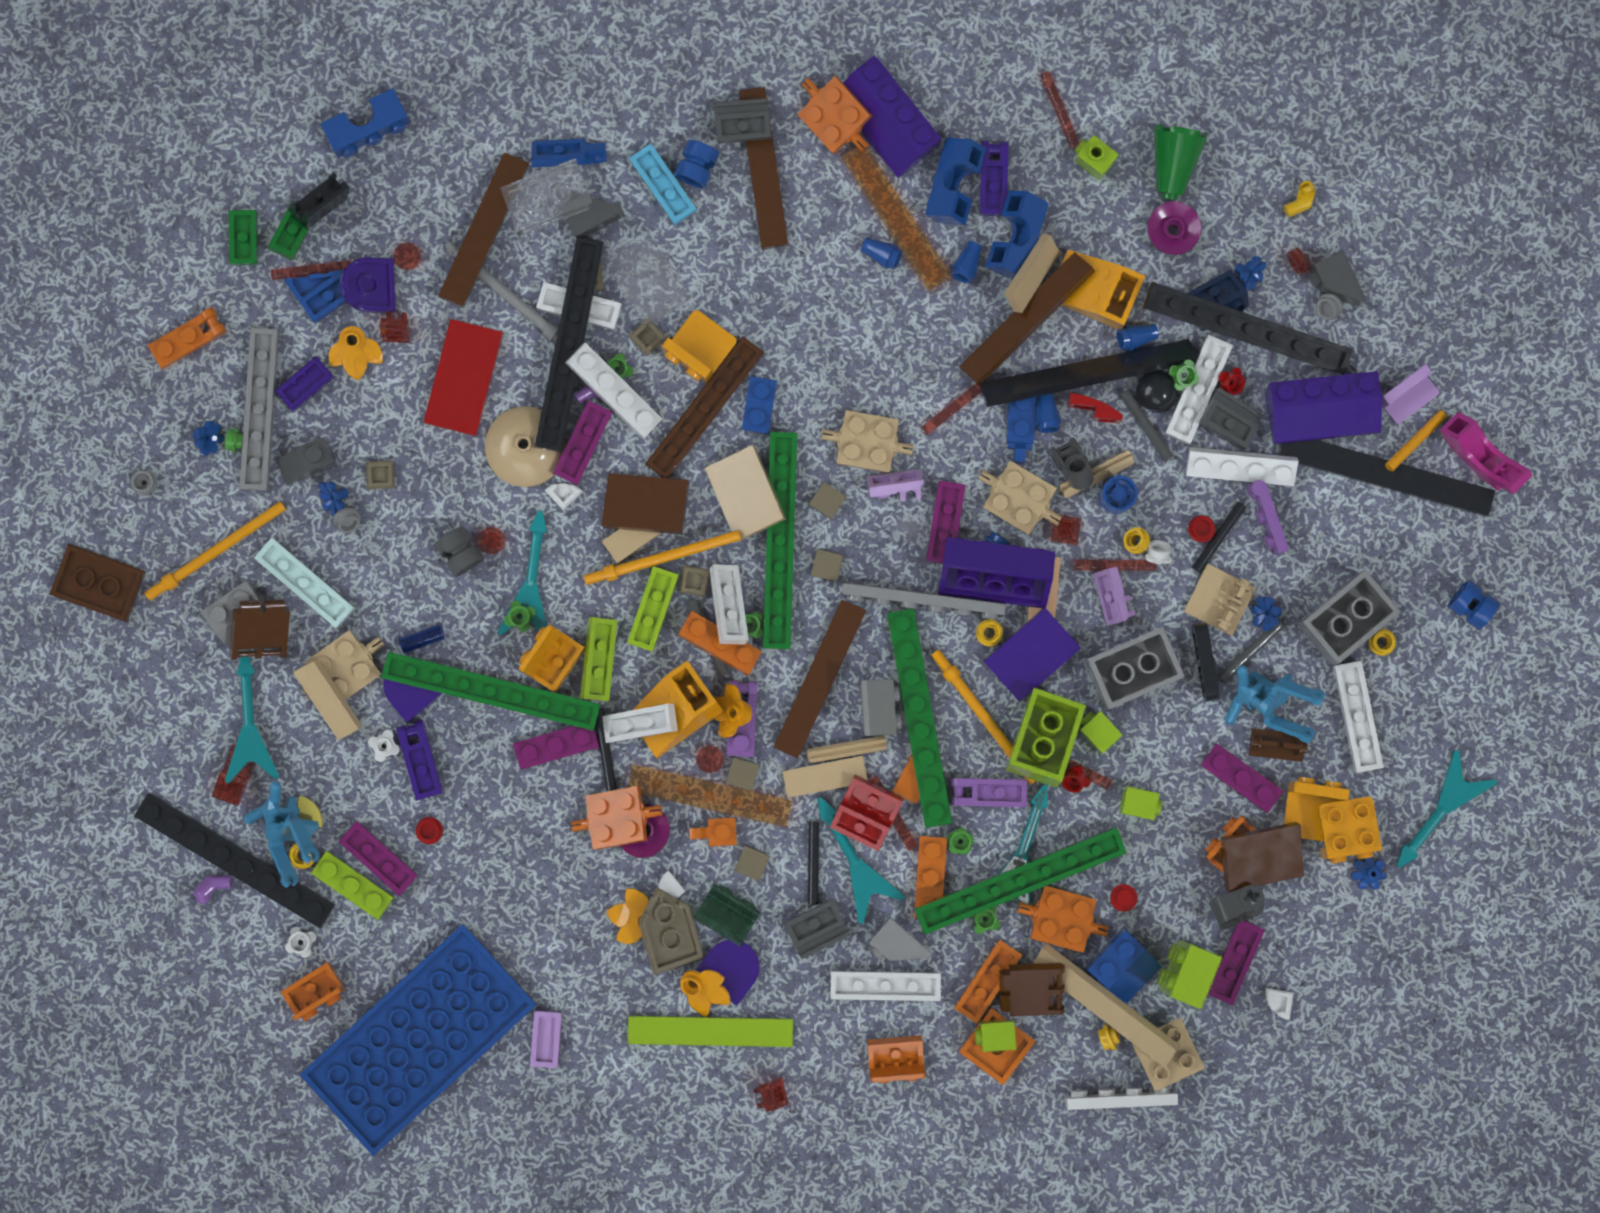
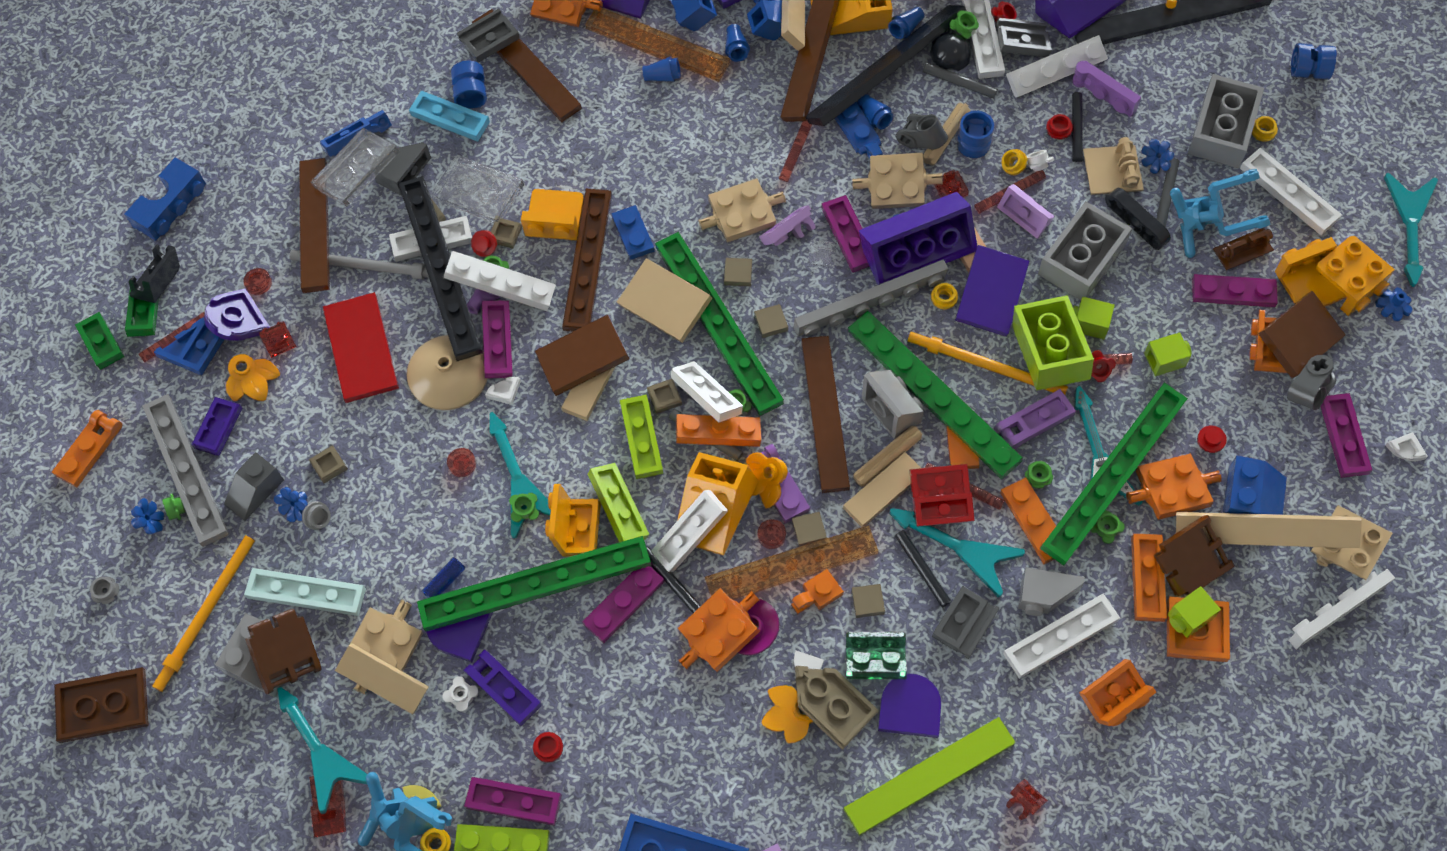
camera: 25 degrees left, 20 degrees down
(459, 551) = (431, 481): dark grey wheel -> none
(612, 571) = (586, 427): light orange bar -> none
(622, 340) = (483, 243): none -> red plate
(705, 991) = (904, 737): light orange plate -> none
(1101, 411) = (915, 84): red slope -> none
(1109, 1037) = (1289, 561): yellow plate -> none
(1188, 973) = (1319, 455): lime brick -> none

